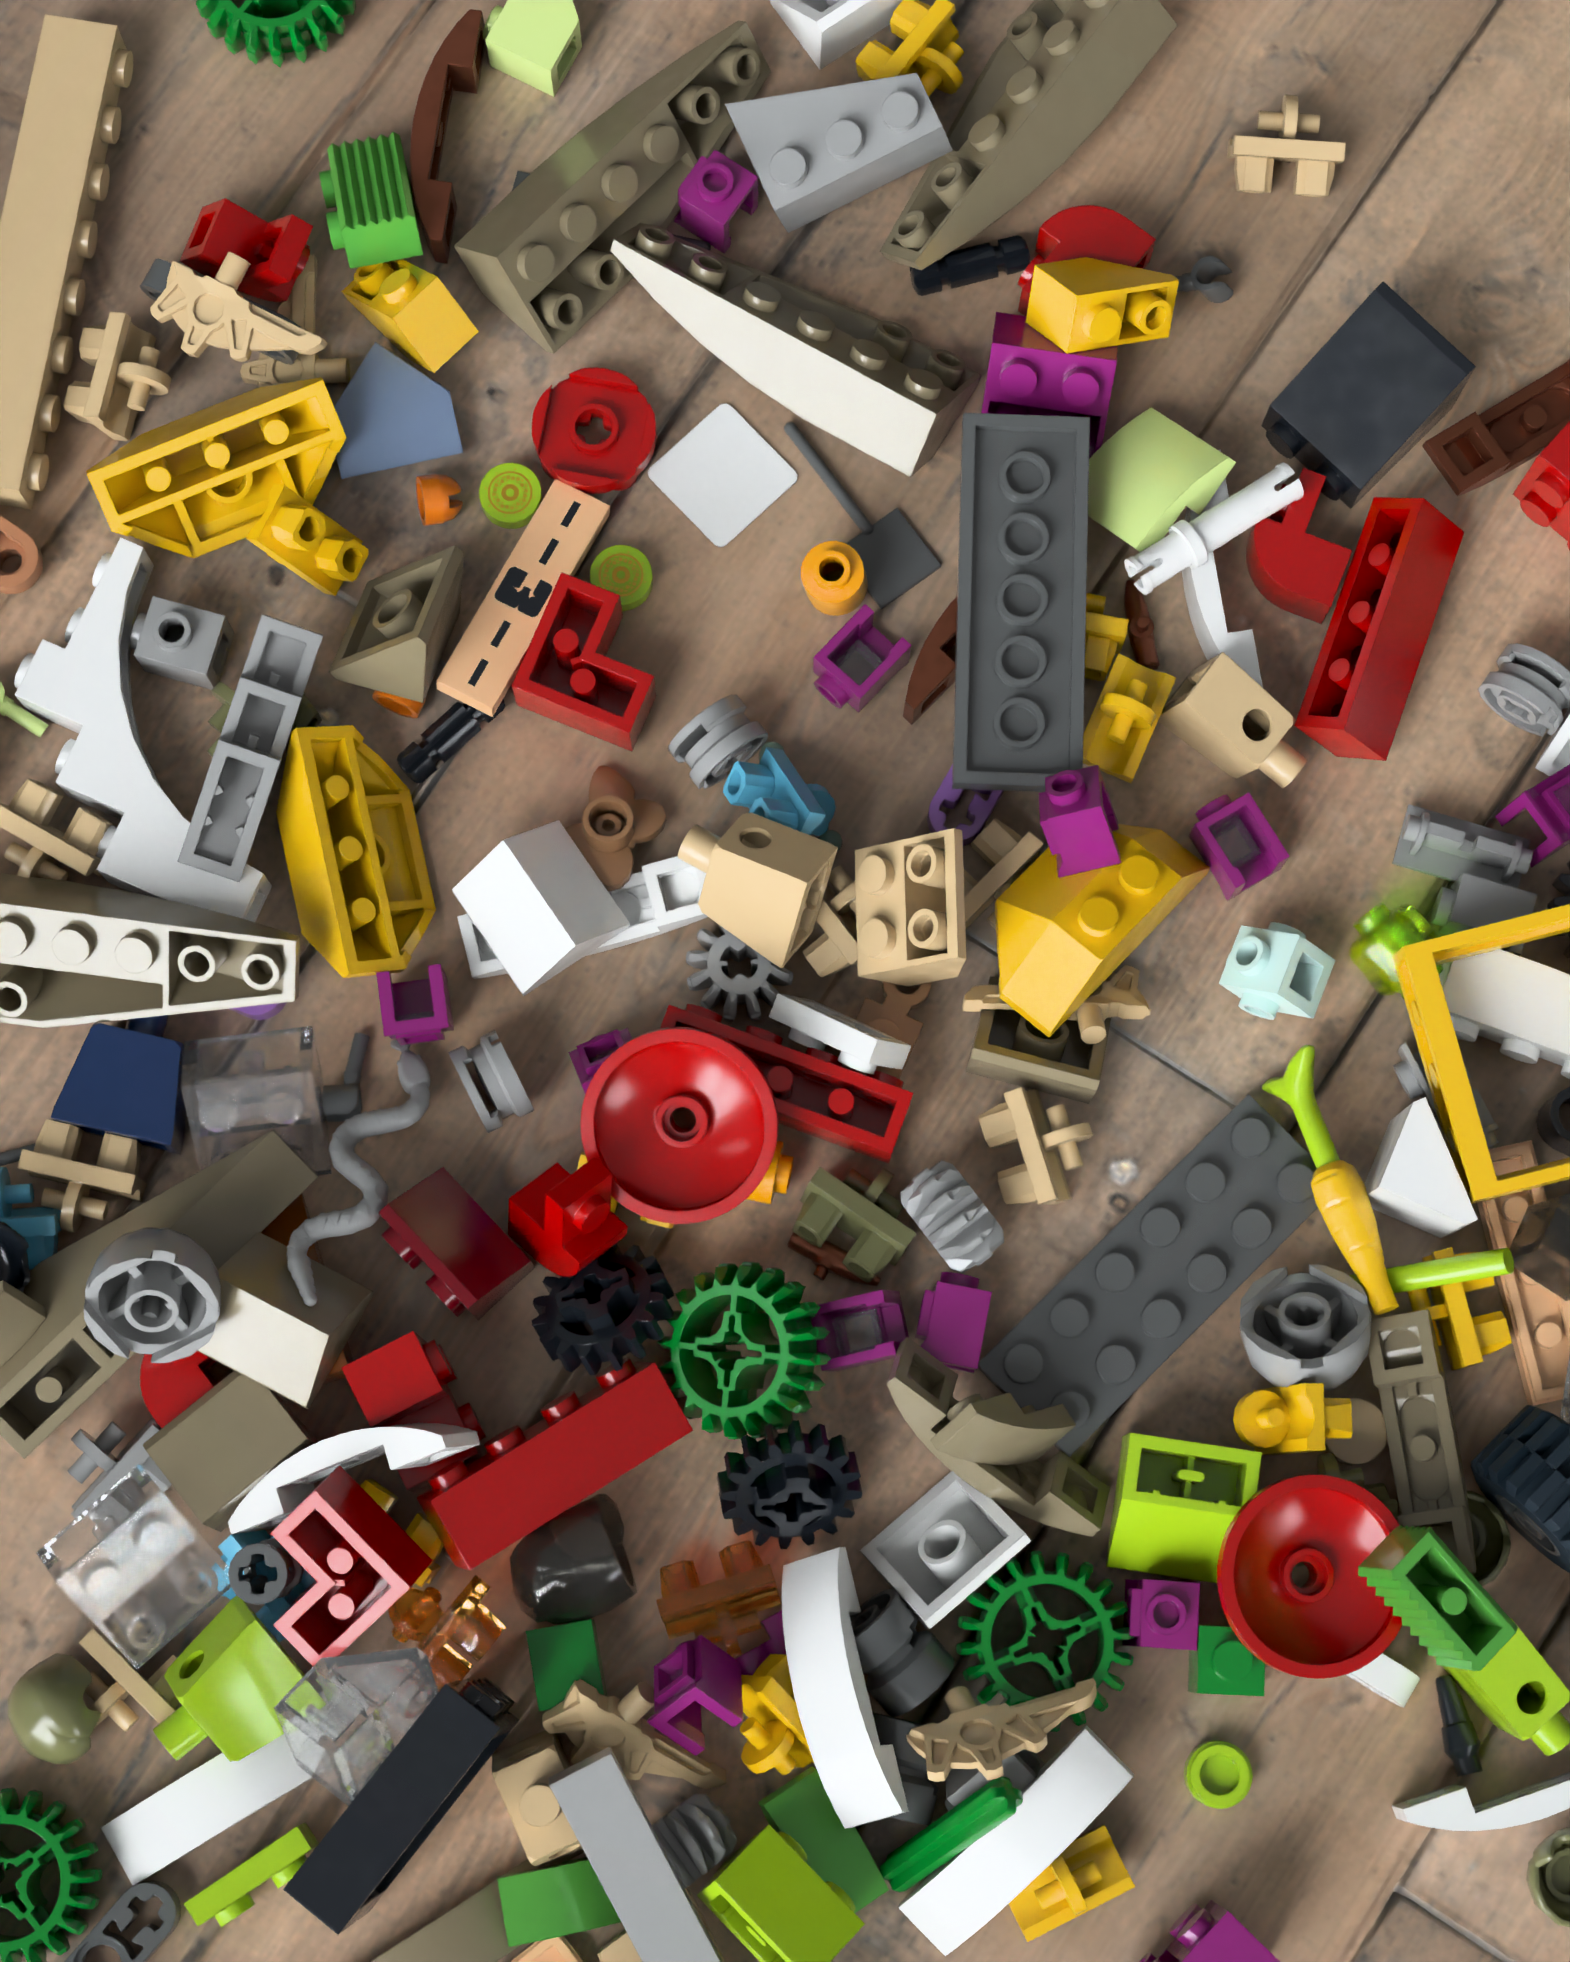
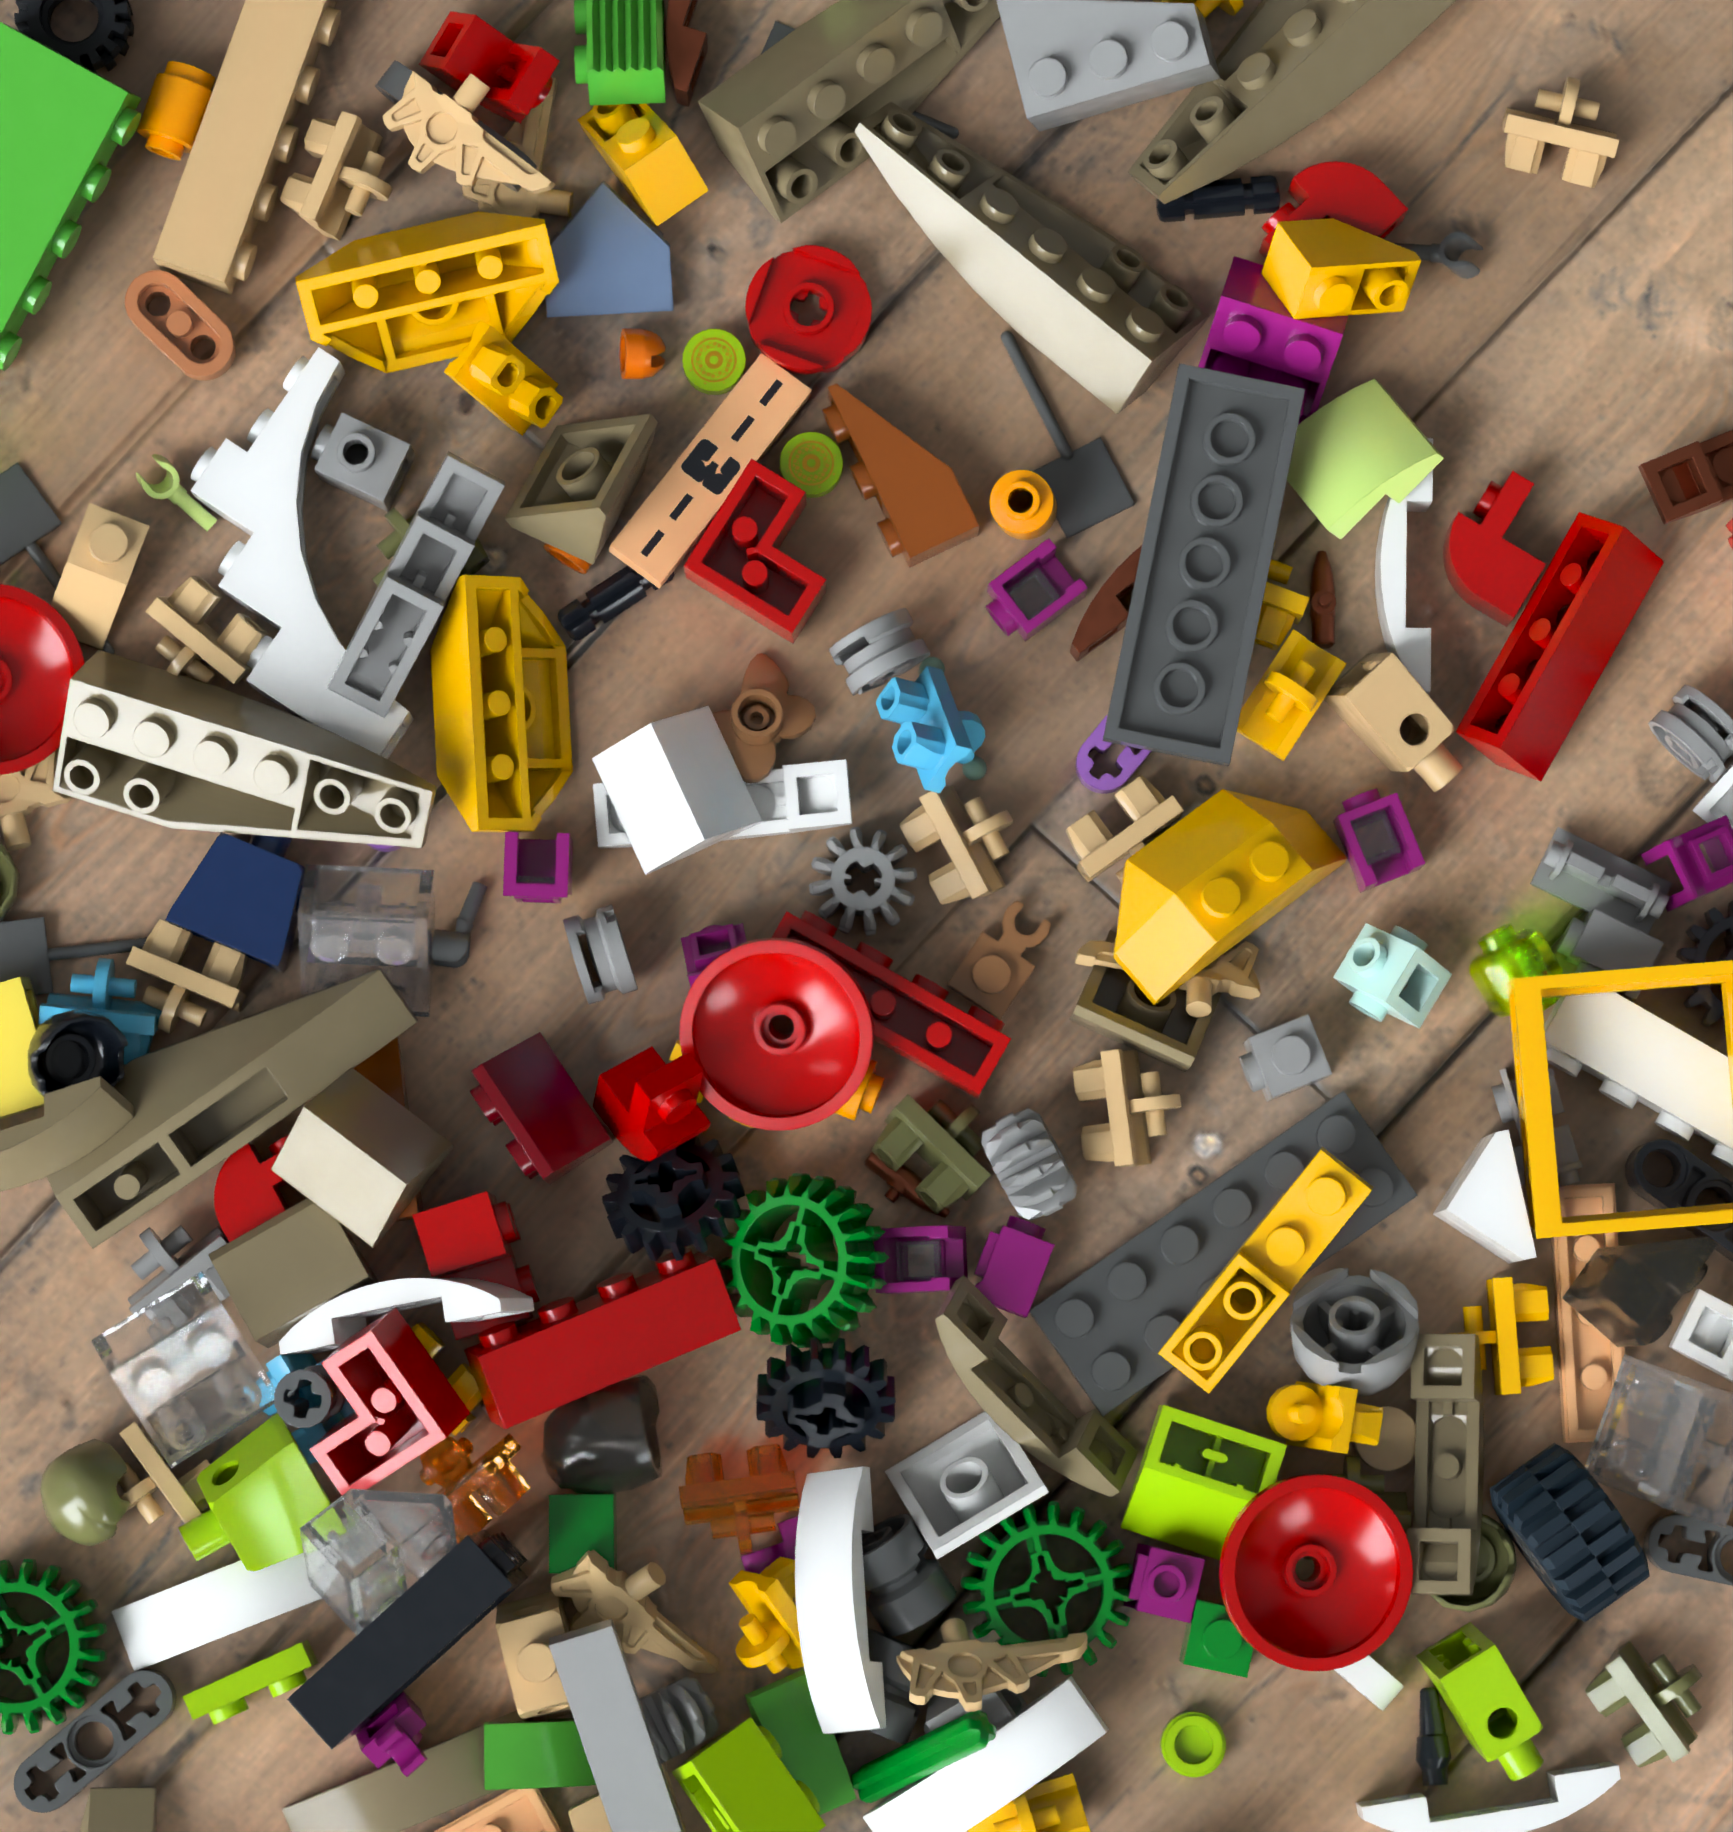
camera: 10 degrees right, 5 degrees up
(153, 1295) = (244, 1116): light grey cylinder -> none
(408, 1906) = (395, 1735): none -> magenta plate
(416, 1082) = (526, 941): light grey animal -> none
(694, 1677) = (701, 1567): magenta window -> none
(713, 196) = (970, 88): magenta window -> none
(722, 475) = (931, 373): white sticker -> none
(722, 579) = (912, 486): none -> dark orange slope
(761, 882) = (897, 806): tan torso -> none
(819, 1025) = (934, 954): white plate -> none
(911, 909) = (1039, 856): tan slope -> none
(1000, 1431) = (1038, 1381): dark tan slope -> none
(1079, 821) = (1217, 797): magenta window -> none
(1186, 1071) = (1284, 1059): none -> light grey brick
(1193, 541) = (1412, 520): white pin -> none
(1206, 1281) = (1265, 1270): none -> yellow slope
(1336, 1184) = (1411, 1195): yellow piece -> none
(1367, 396) = (1590, 409): black slope -> none
(1437, 1598) = (1426, 1614): bright green brick -> none
(1449, 1270) = (1489, 1299): lime bar -> none

